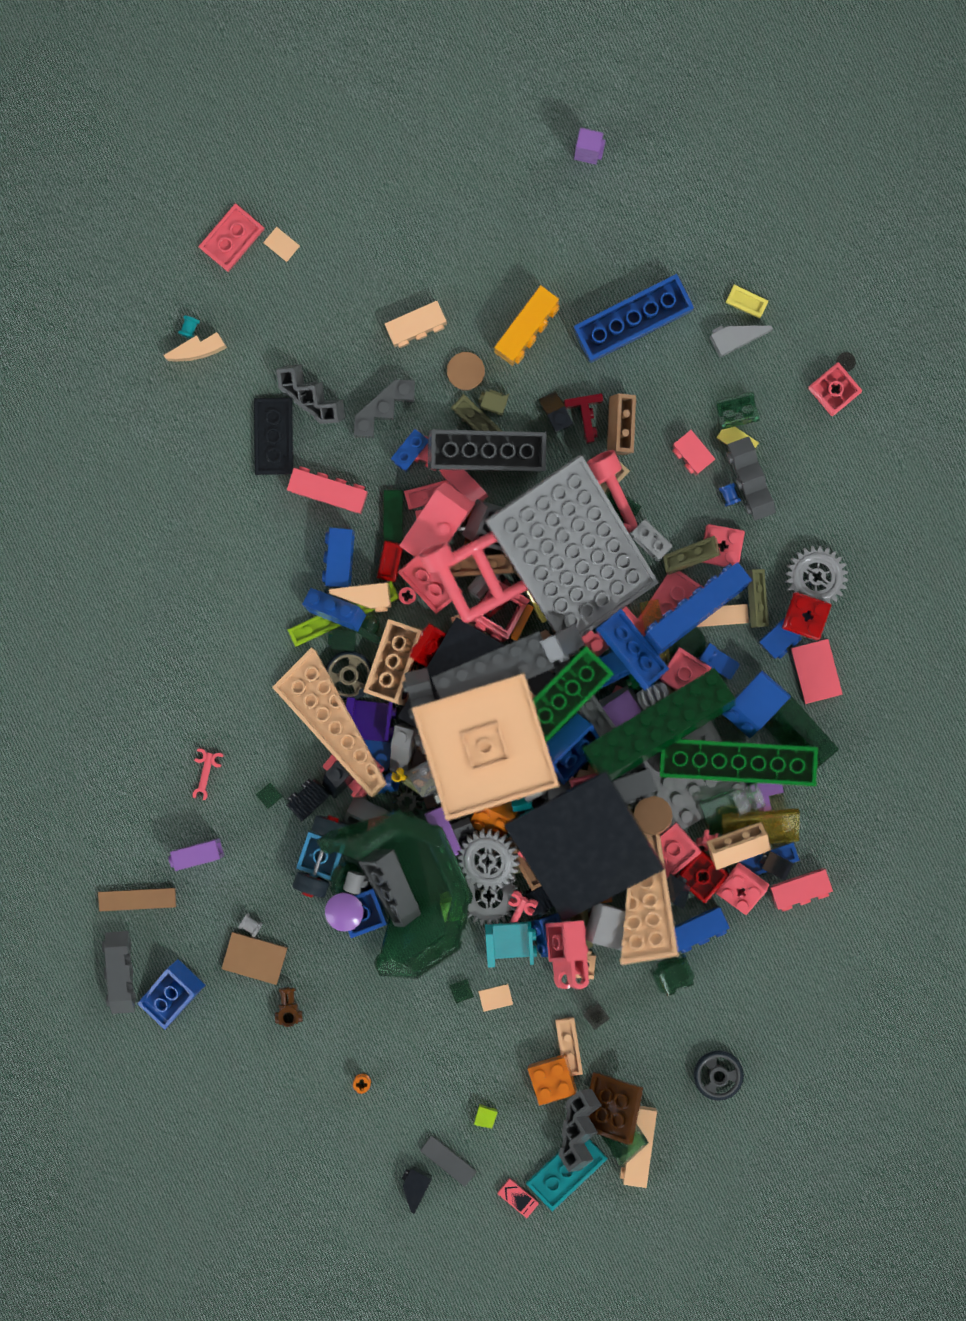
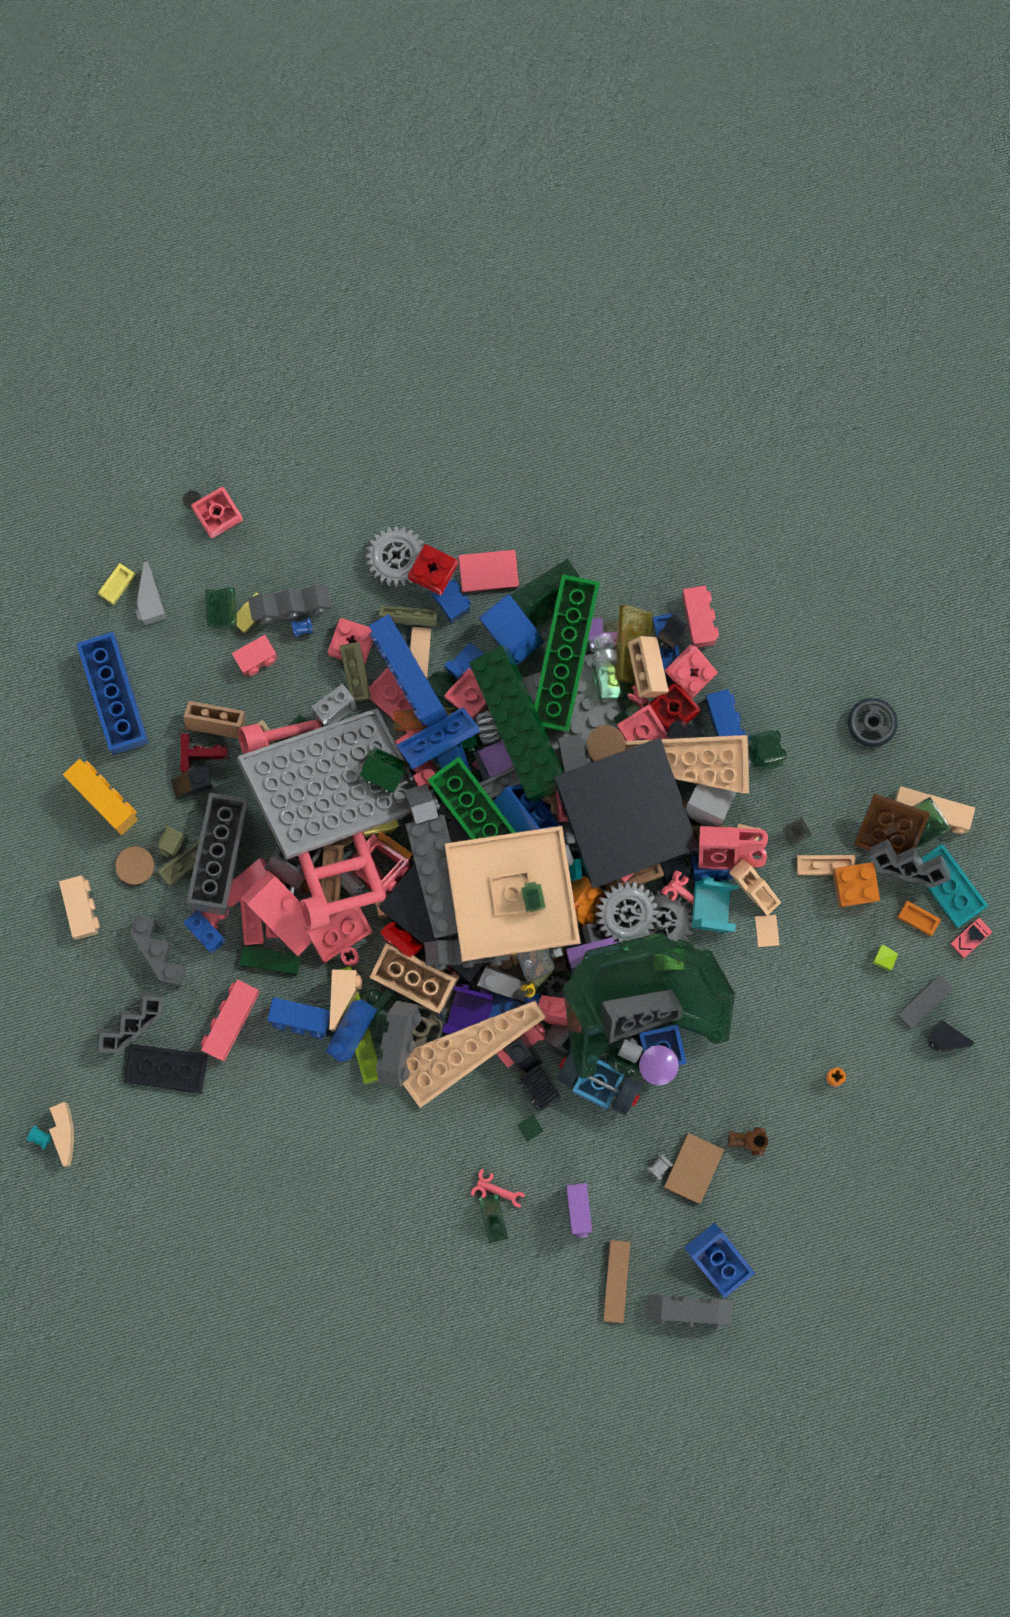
camera: 90 degrees left, 10 degrees down
(178, 773) = (493, 1218): none -> clear green slope
(327, 657) = (398, 1044): none -> dark grey brick
(383, 802) = (554, 1009): none -> coral brick
(390, 561) = (312, 969): red tile -> none
(461, 990) = (755, 963): clear green plate -> none
(482, 768) = (533, 897): none -> clear green brick
(529, 1144) = (919, 918): none -> orange tile
(534, 981) = (755, 887): none -> light nougat slope
(593, 600) = (383, 770): none -> dark green slope
(689, 830) = (626, 713): none -> clear green tile

